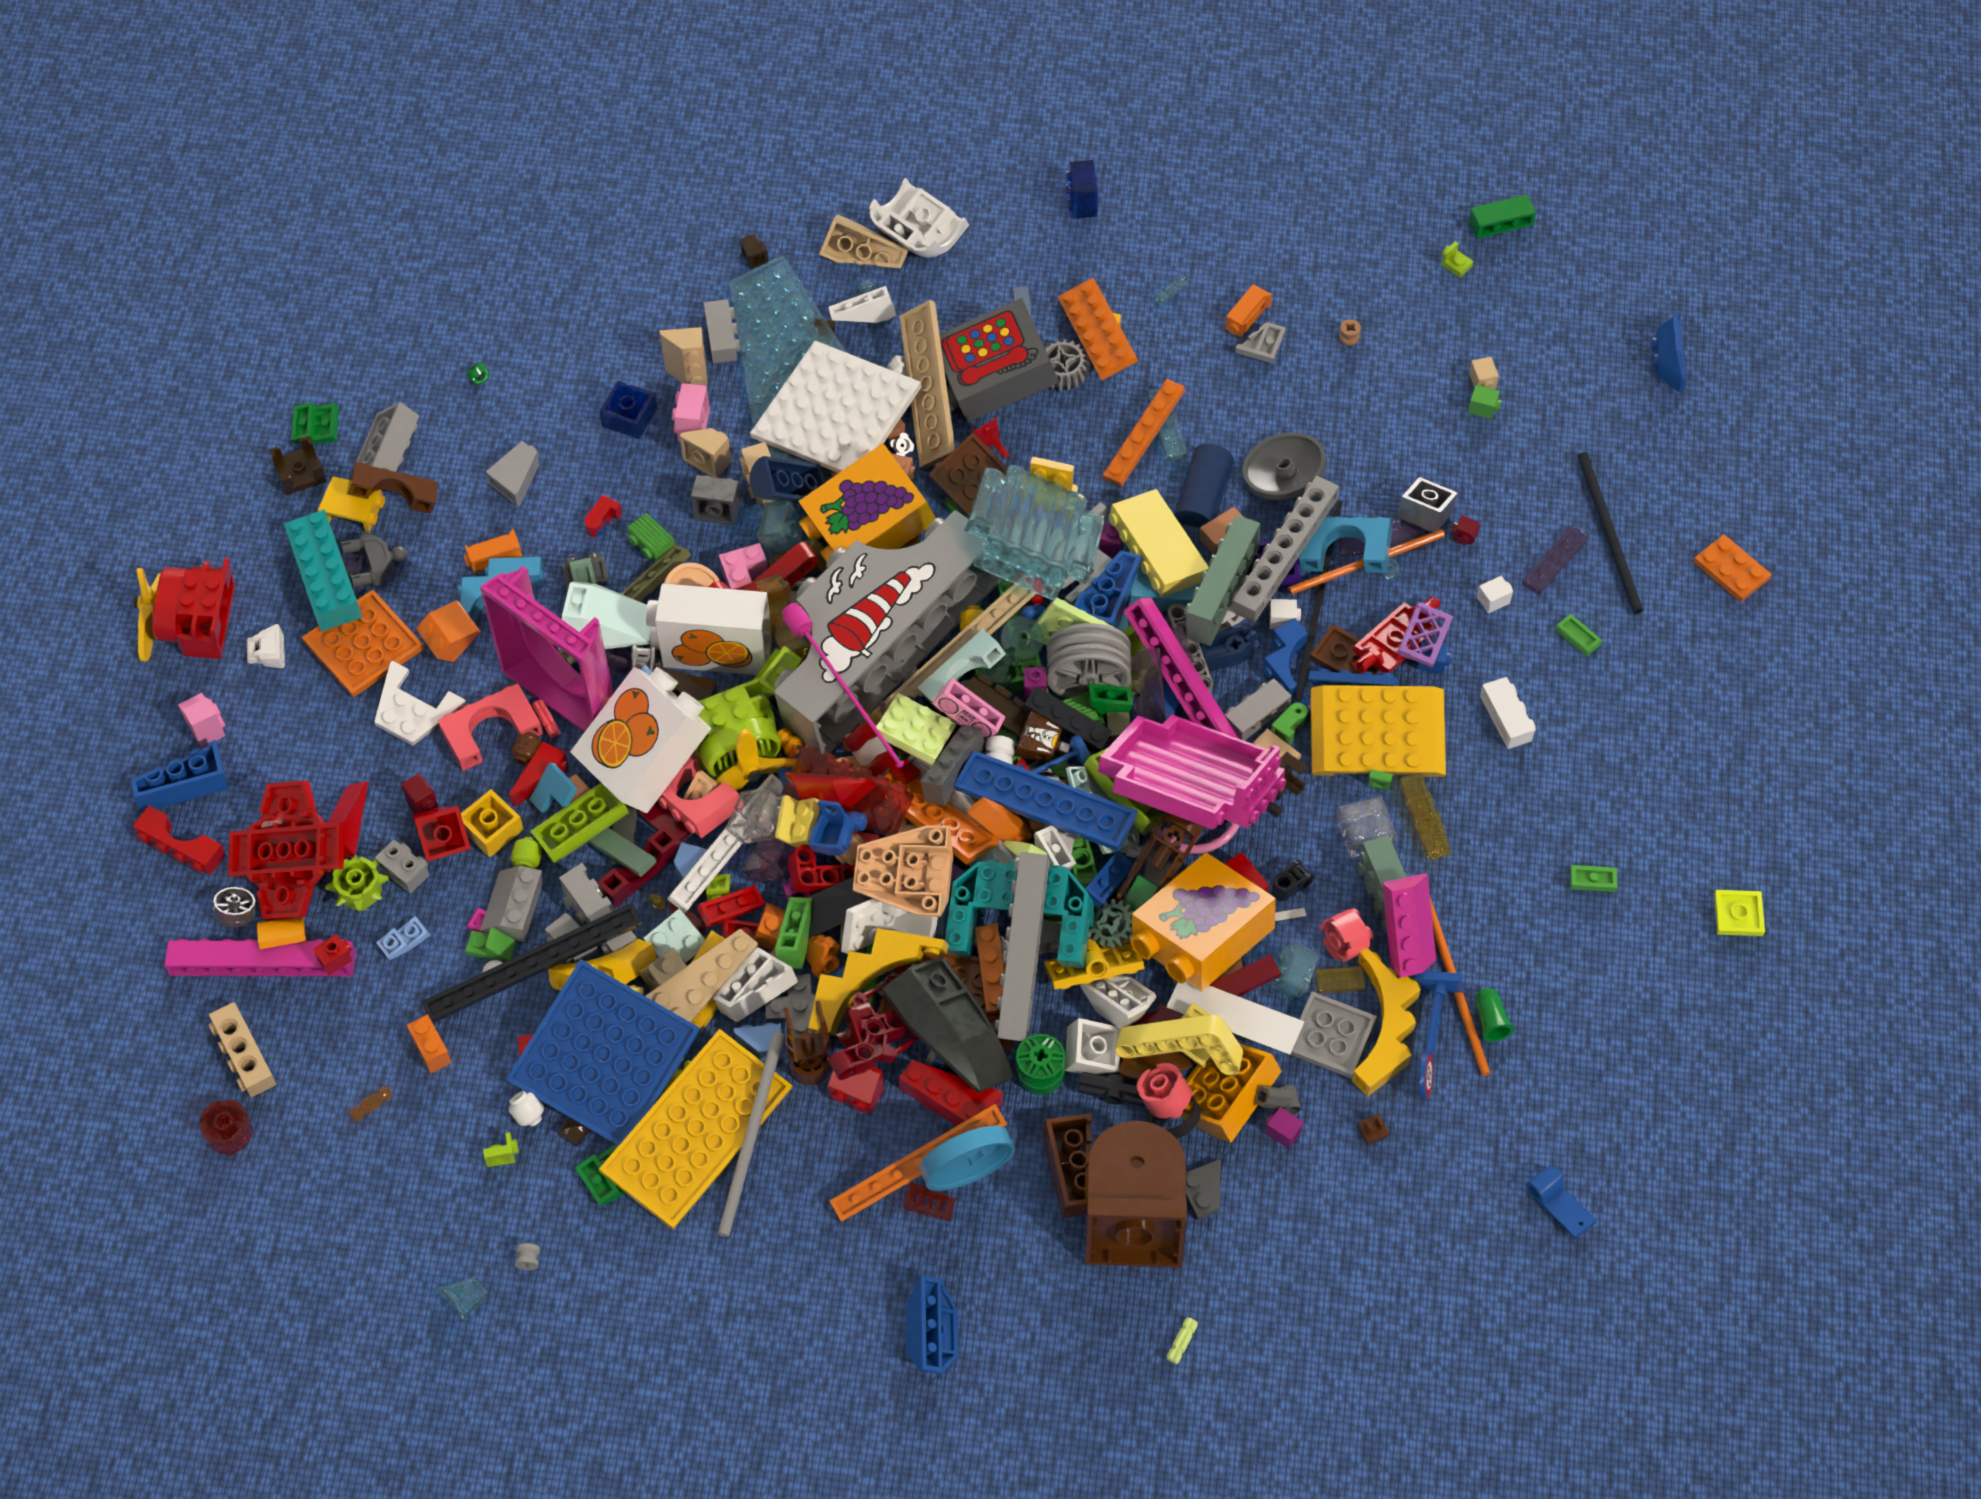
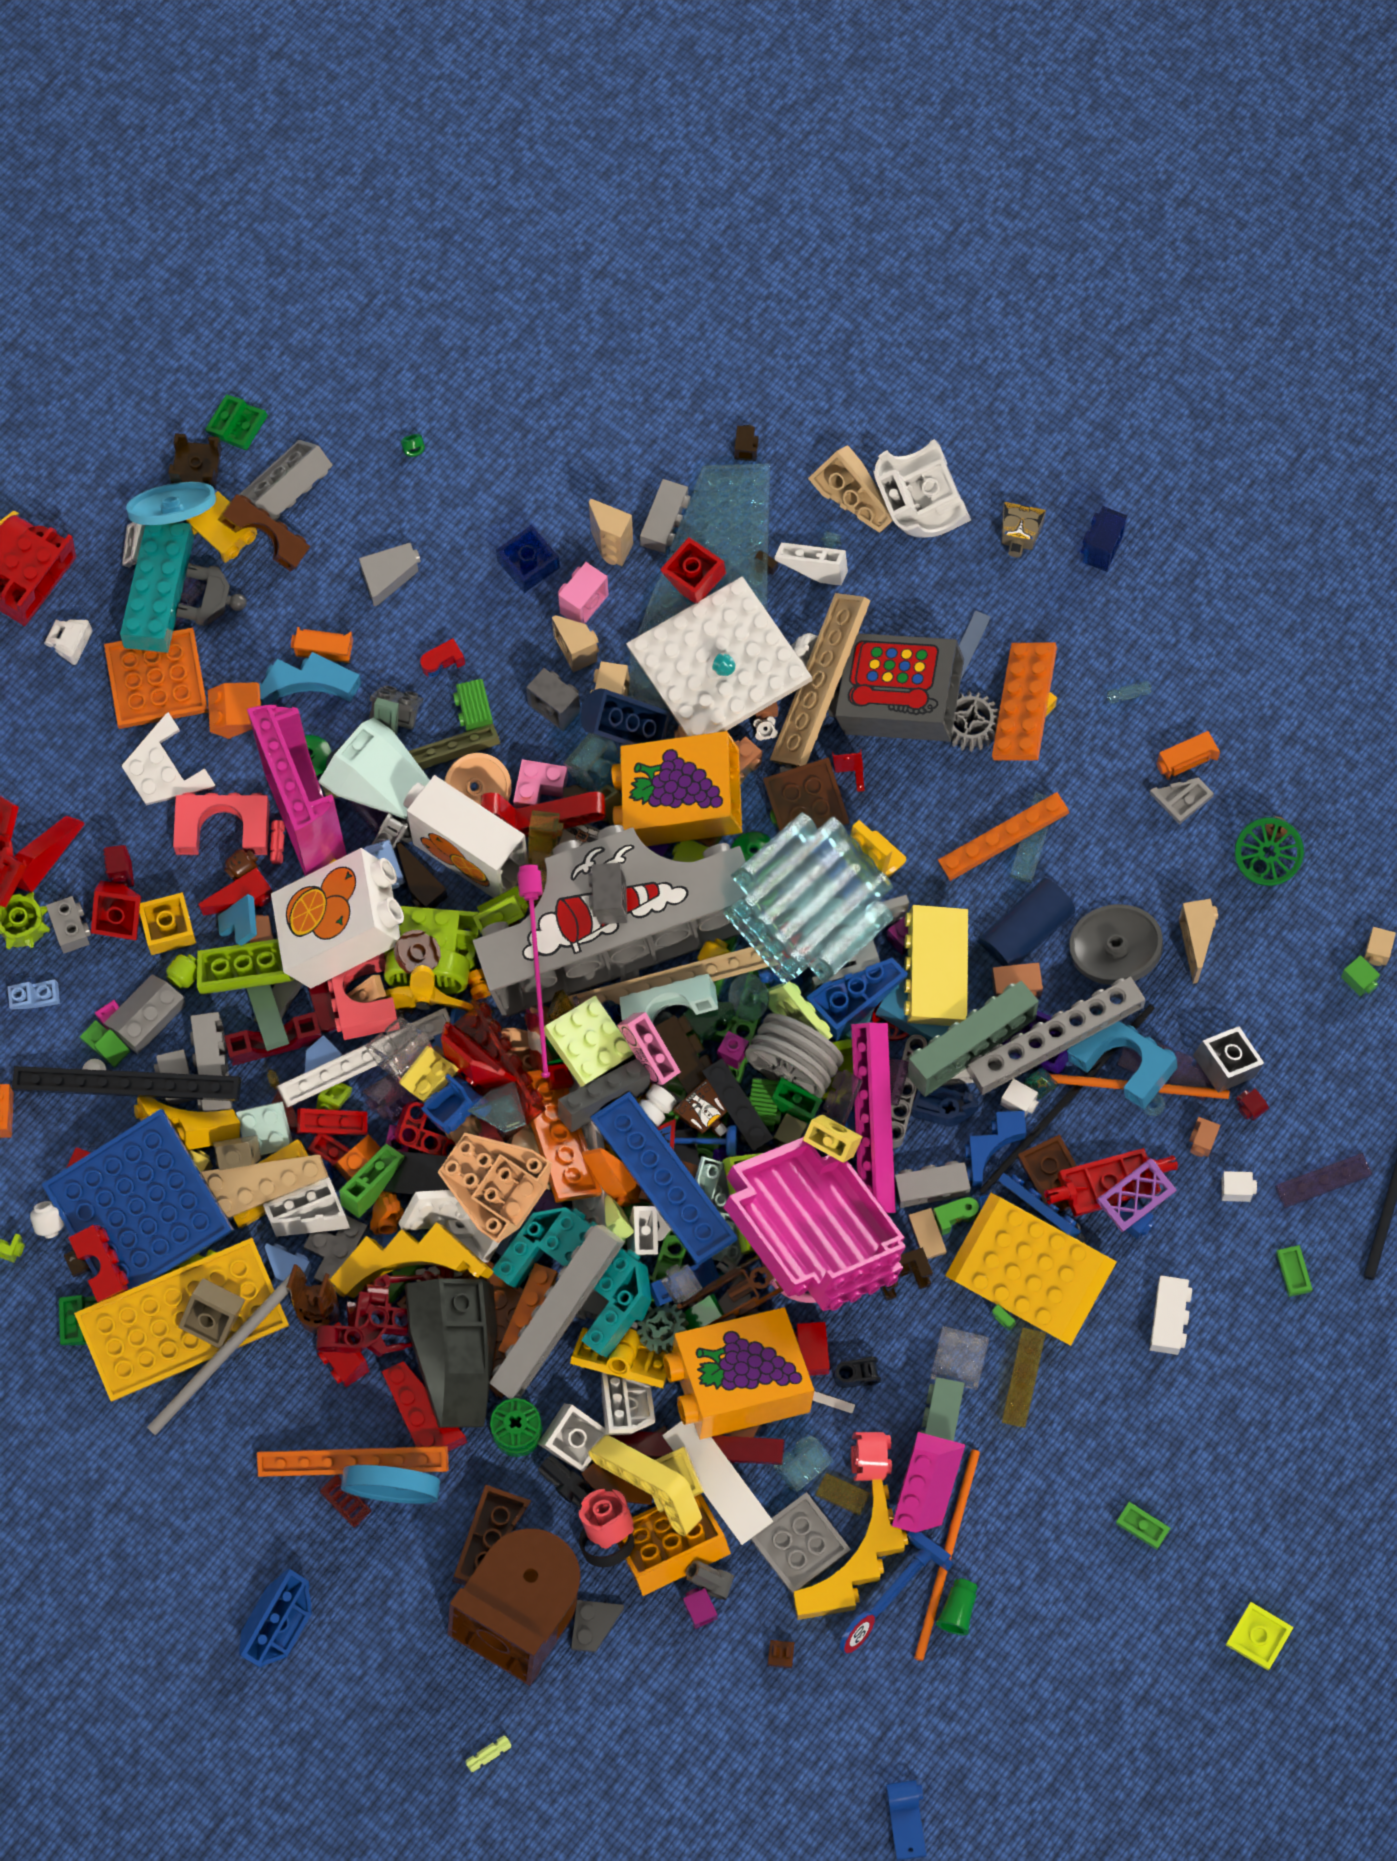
camera: 30 degrees right, 10 degrees up
(281, 549) = (132, 543): none -> white tile
(299, 501) = (171, 503): none -> medium azure dish
(581, 1103) = (110, 1279): none -> red arch
(722, 1106) = (211, 1313): none -> dark tan slope
(726, 726) = (416, 949): none -> tile
(774, 352) = (694, 570): none -> red slope
(844, 404) = (723, 664): none -> teal plate
(871, 592) = (608, 893): none -> flat silver brick
(878, 810) = (501, 1108): none -> clear light blue slope
(1010, 212) = (1021, 527): none -> dark tan torso
(1109, 876) = (680, 1283): none -> clear brick
(1162, 704) = (832, 1138): none -> light yellow brick
(1293, 592) = (1041, 1082): none -> tile
(1342, 429) = (1196, 926): none -> tan slope
(1349, 369) = (1250, 873): none -> green piece
(1445, 571) = (1203, 1137): none -> nougat brick

